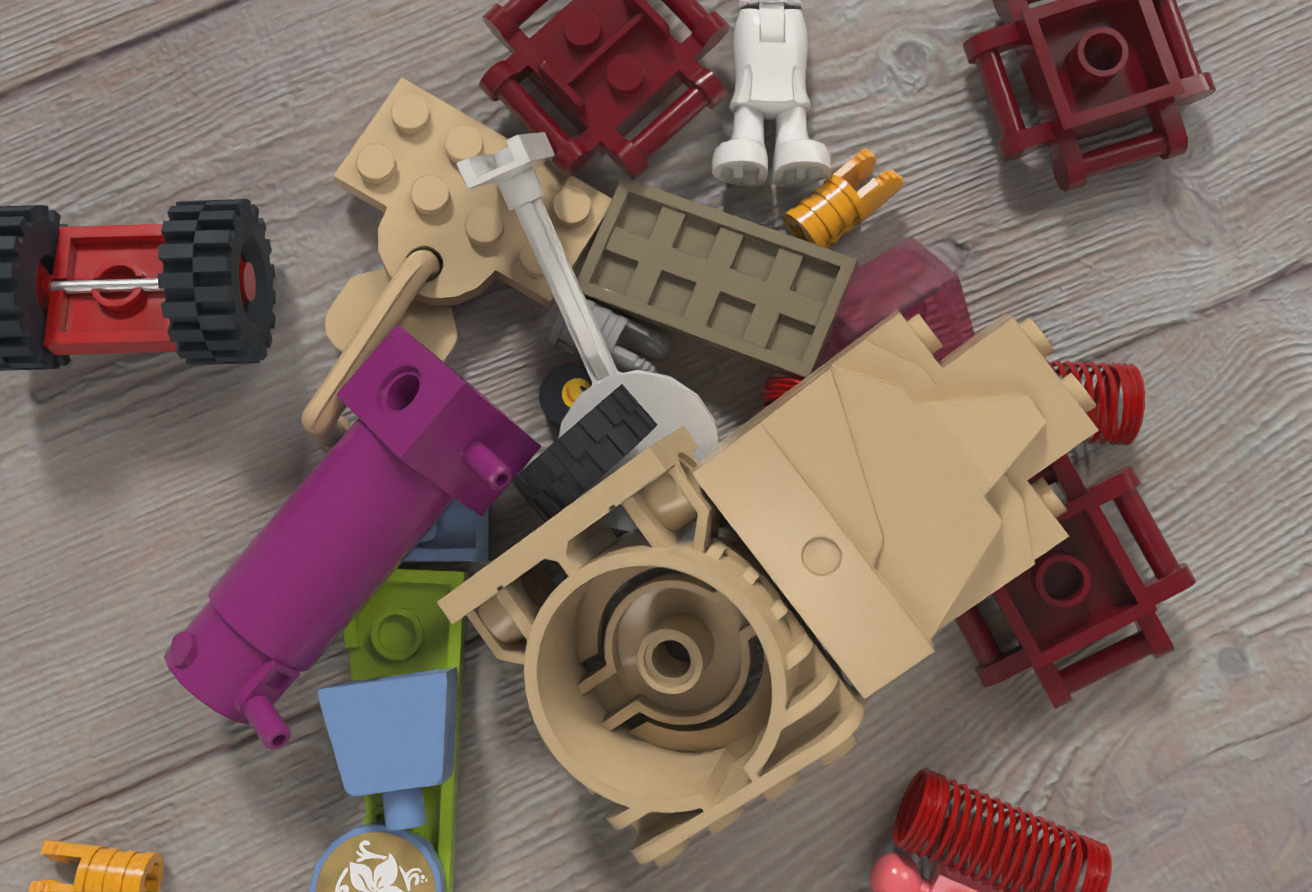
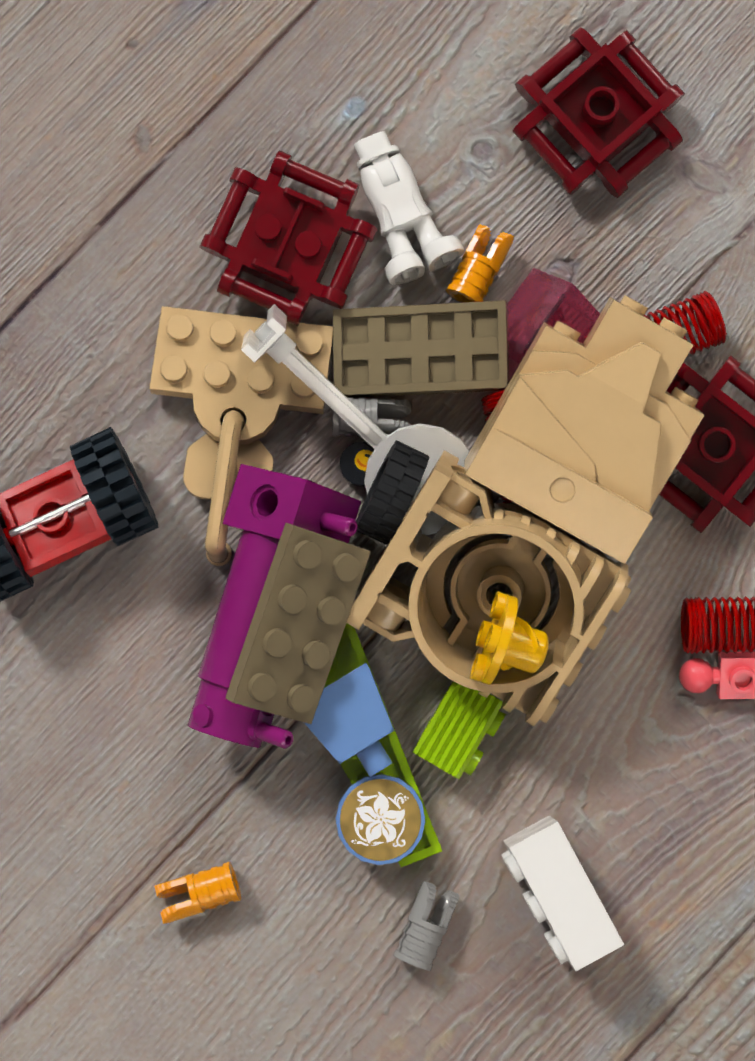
camera: 25 degrees left, 0 degrees up
(364, 581) = (297, 624): none -> dark tan plate
(533, 816) = (458, 729): none -> lime brick
(649, 736) = (507, 642): none -> yellow plate

